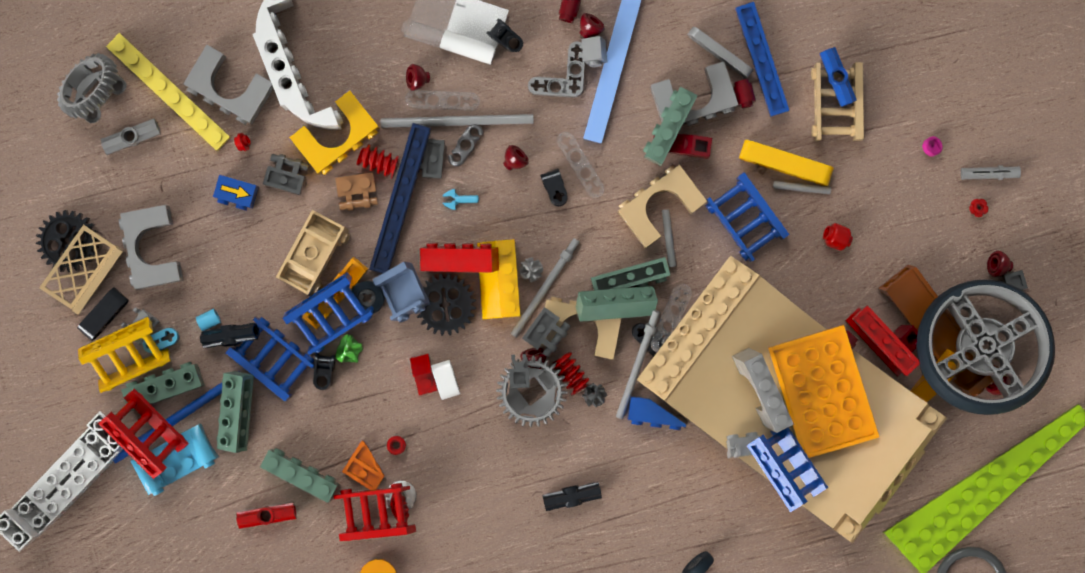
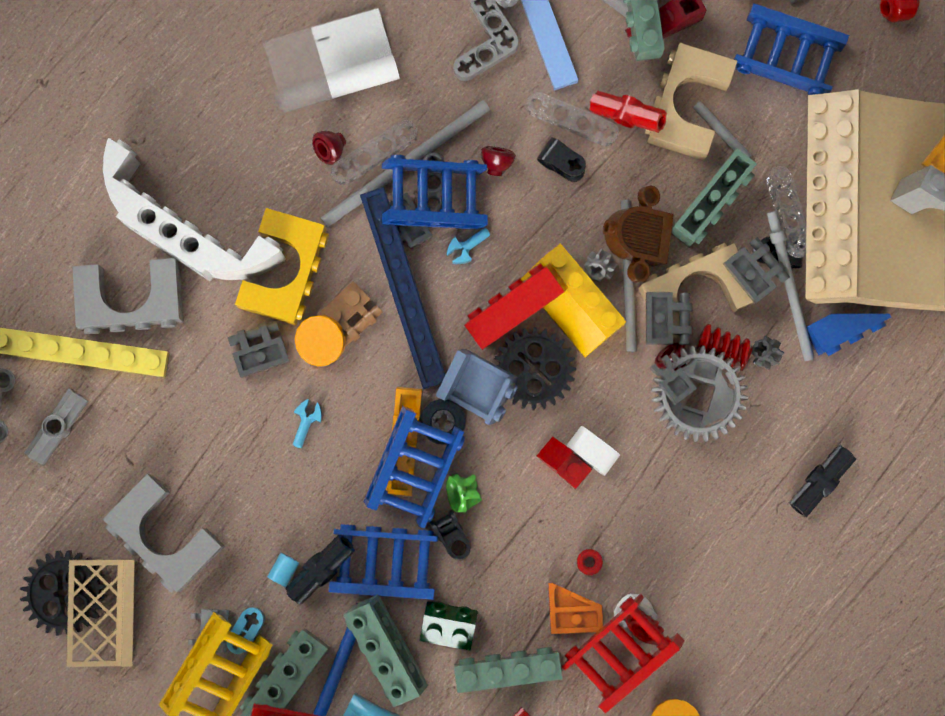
camera: 45 degrees left, 5 degrees down
(103, 314) = (159, 646): black beam -> none
(236, 192) = (216, 407): blue brick -> none
(242, 142) = (186, 347): red plate -> none
(282, 240) = (305, 422): none -> medium azure bar
(284, 423) = (448, 625): none -> dark green bracket
(312, 253) = (348, 414): tan piece -> none
(326, 195) = (320, 340): none -> light orange tile
(378, 161) = (350, 263): red piece -> none
(442, 162) = (422, 215): none -> blue fence
(503, 34) = (390, 36): black piece -> none
(568, 268) = (640, 234): none -> reddish brown piece
(615, 340) = (750, 274): none -> dark grey plate
(616, 186) = (628, 111): none -> red piece
(616, 303) = (721, 234): sand green brick -> none

